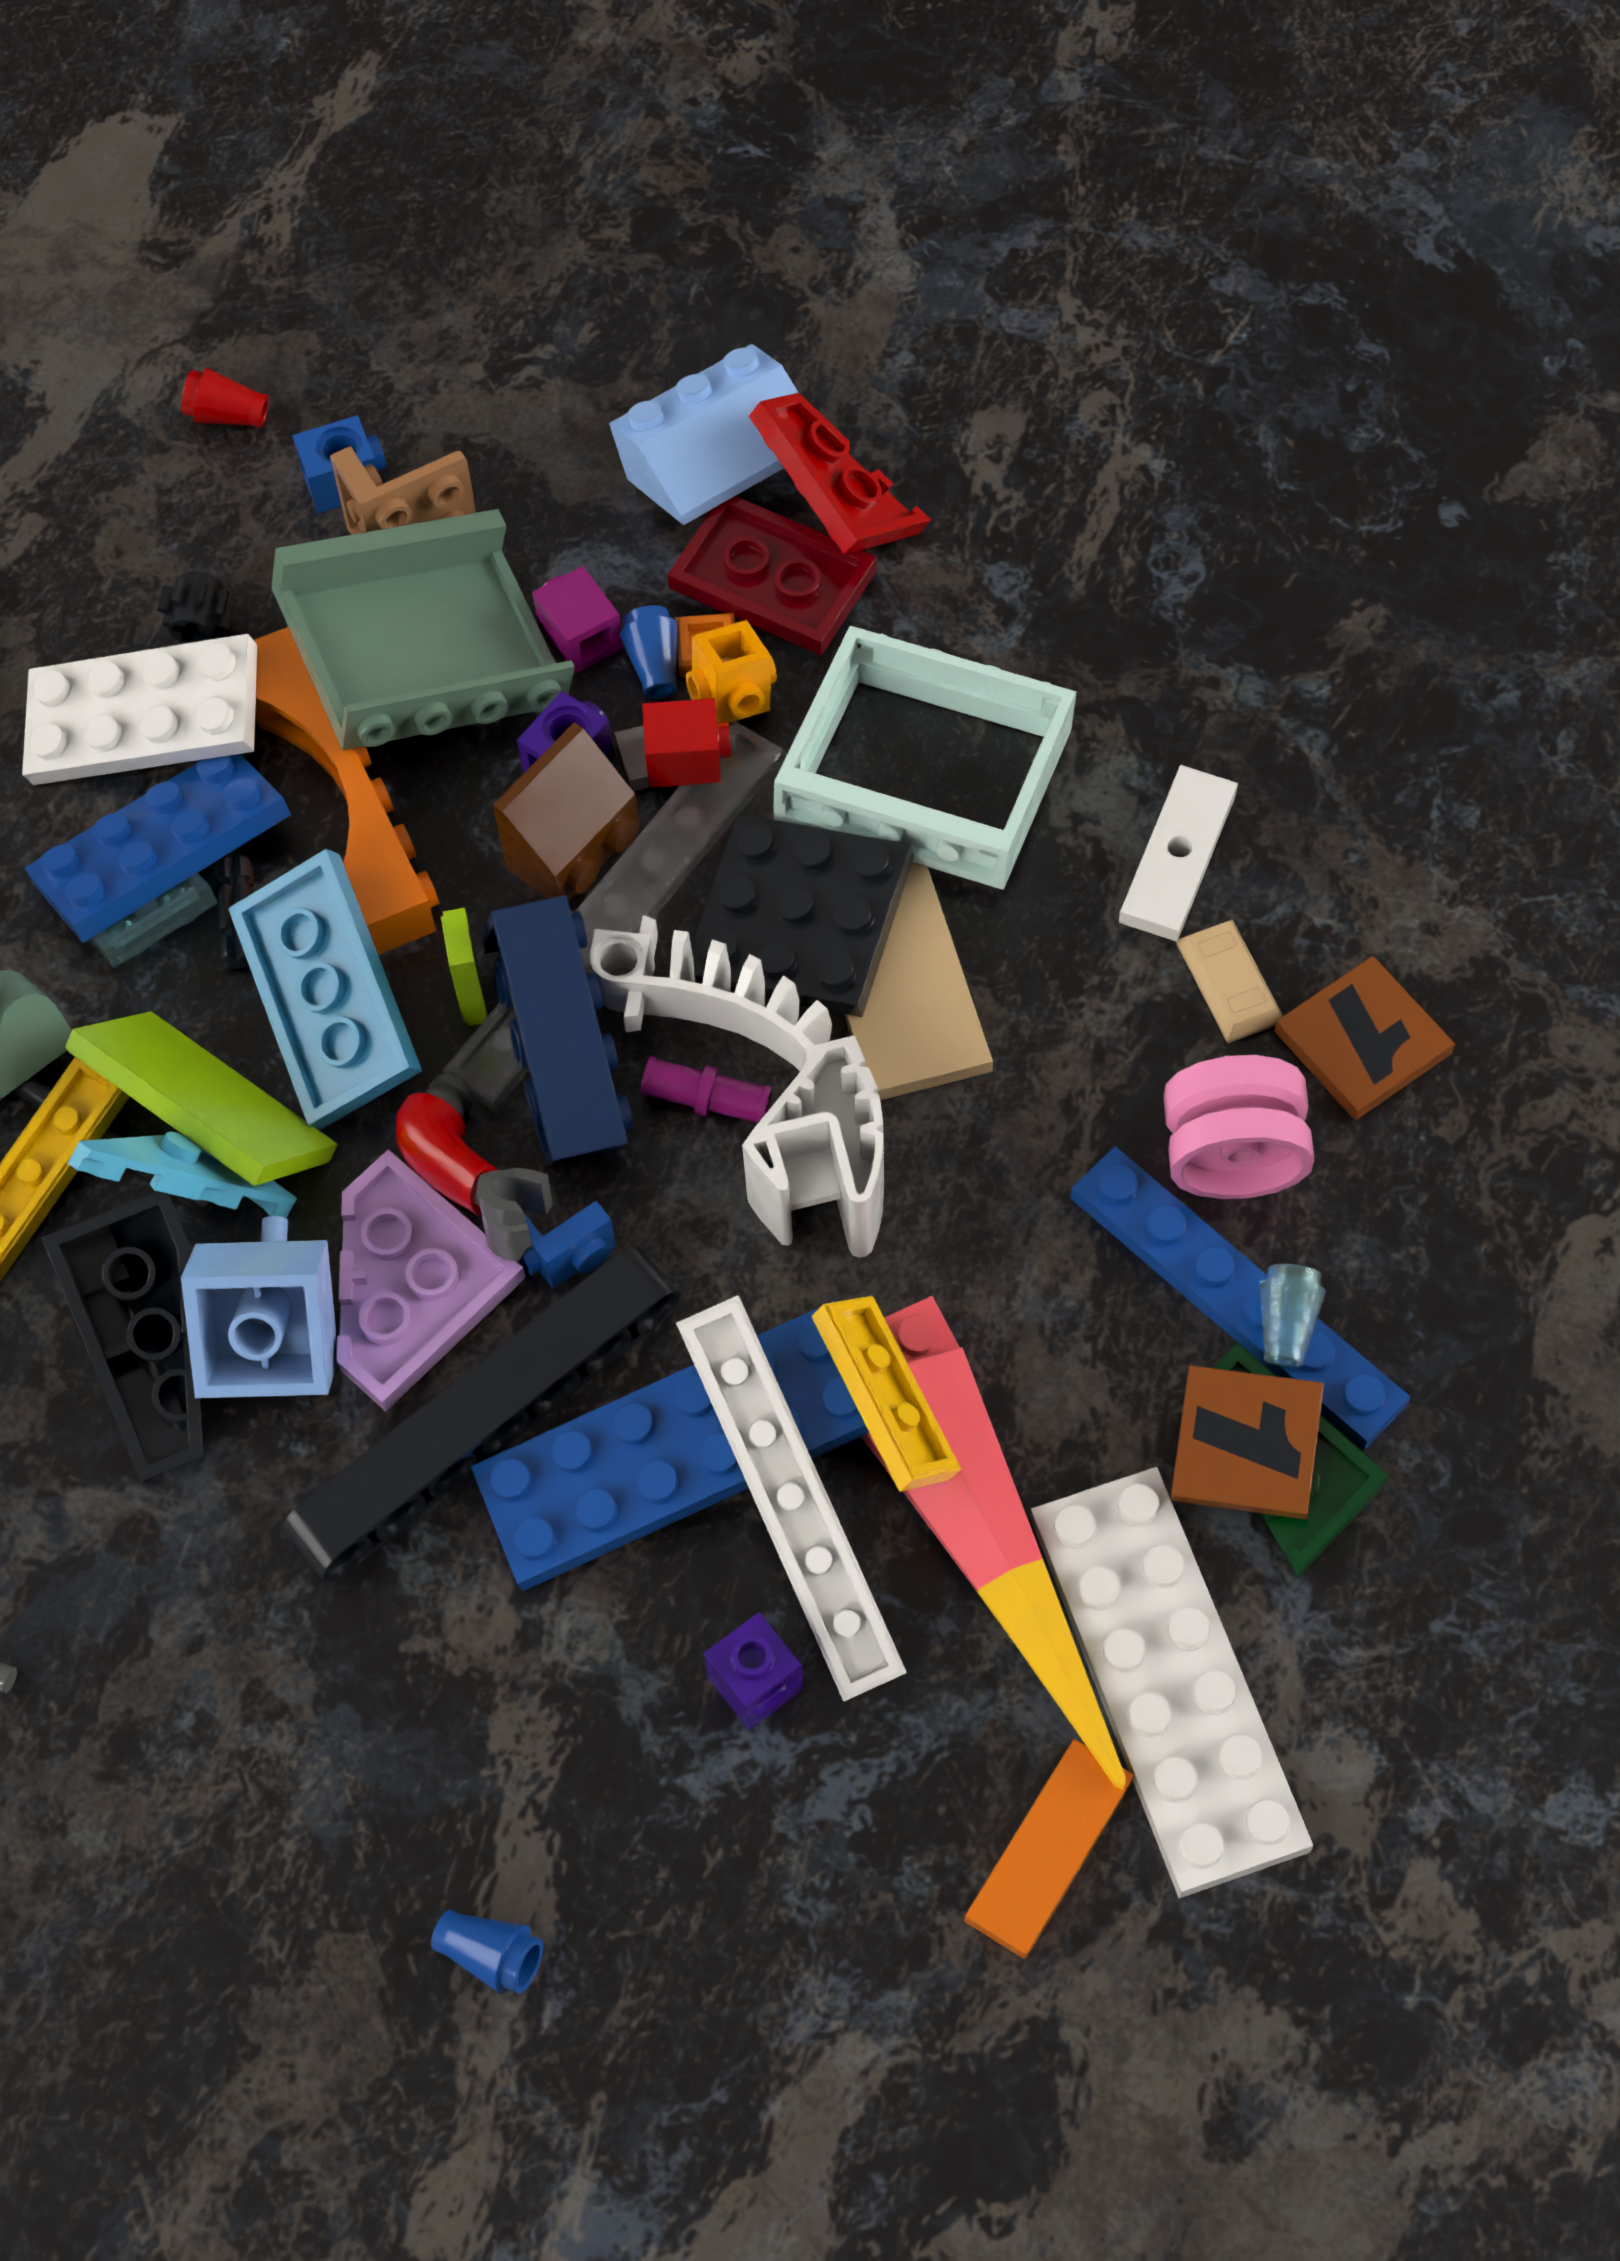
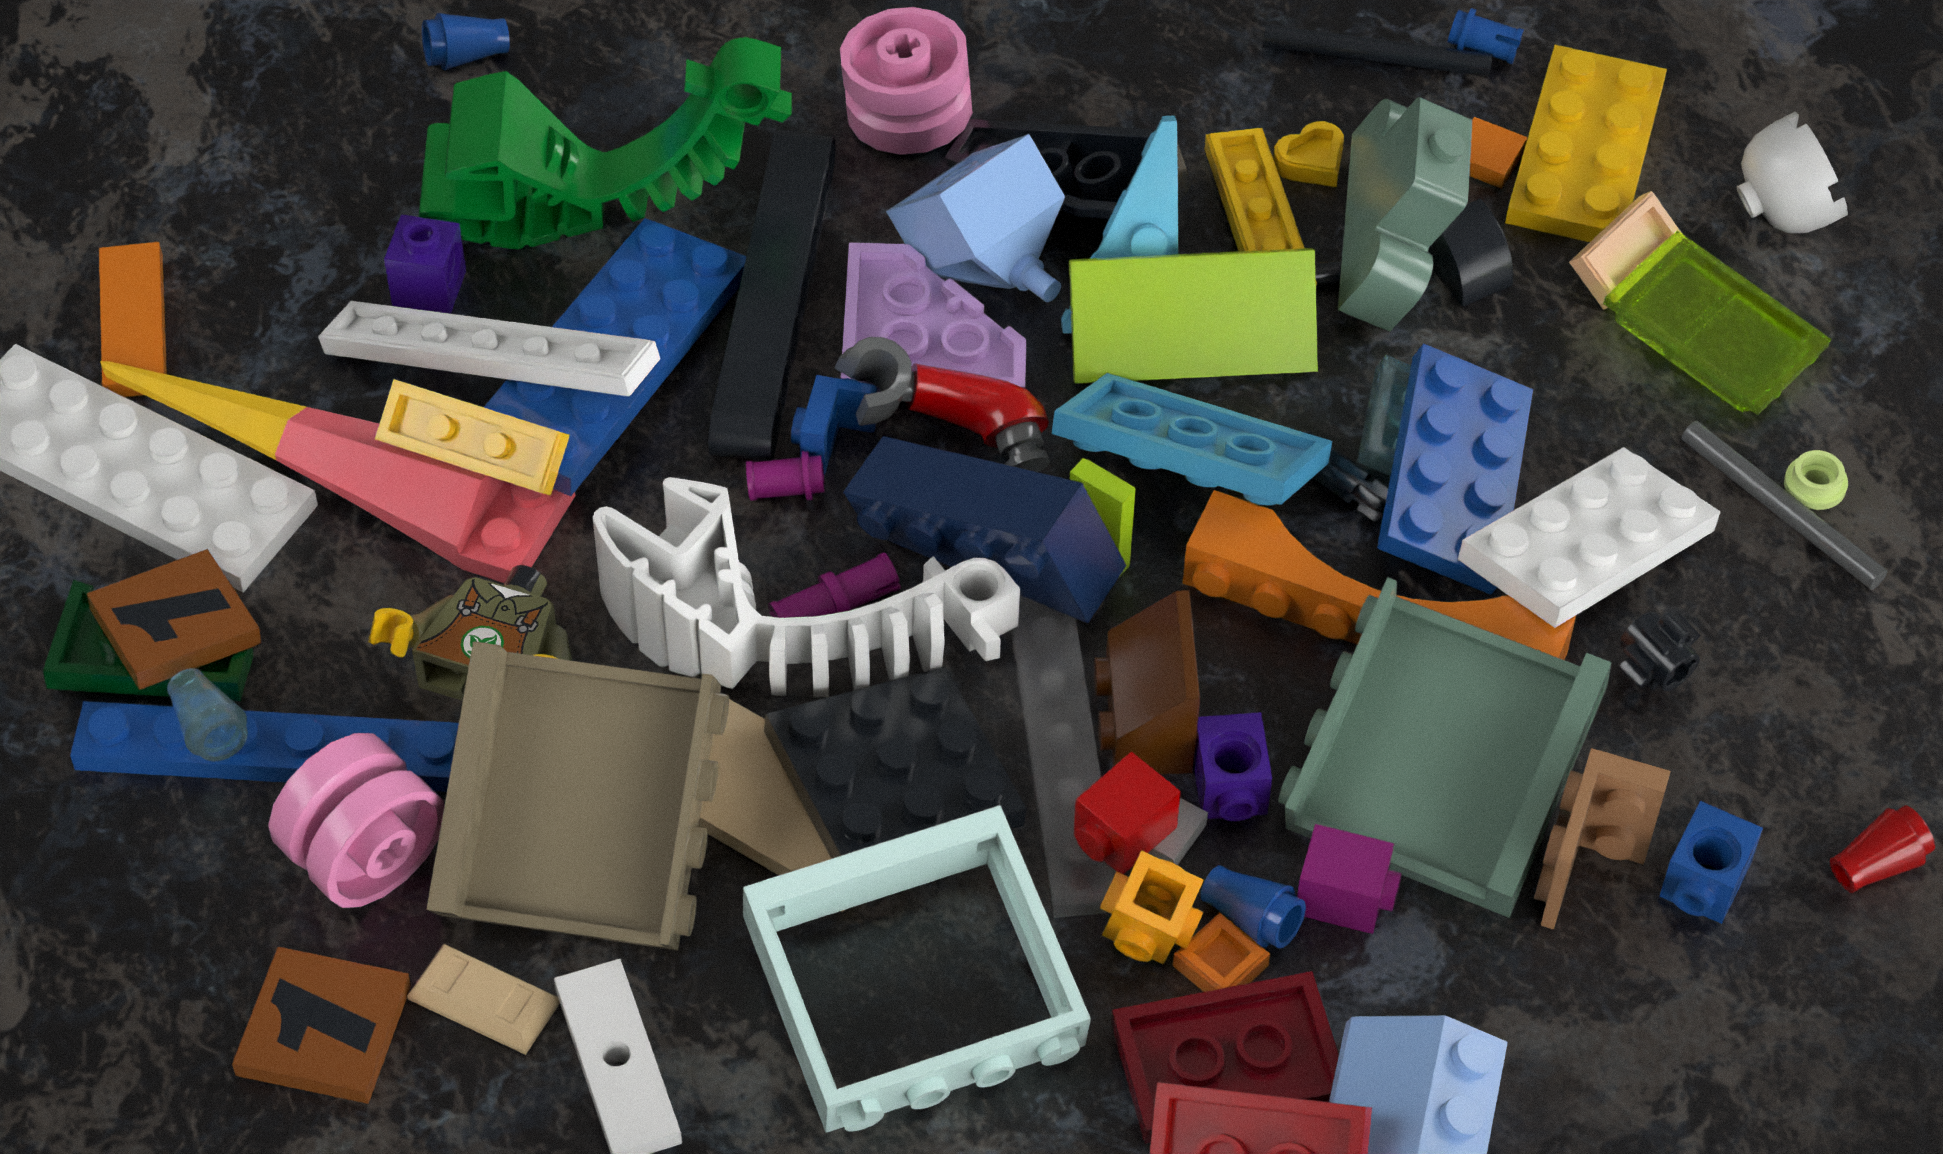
camera: 135 degrees right, 10 degrees down
(143, 1557) = (906, 80): none -> bright pink wheel
(593, 1690) = (526, 179): none -> green piece
(644, 1225) = (786, 477): none -> magenta pin
(1006, 1233) = (478, 612): none -> torso
(1052, 1019) = (577, 798): none -> dark tan panel

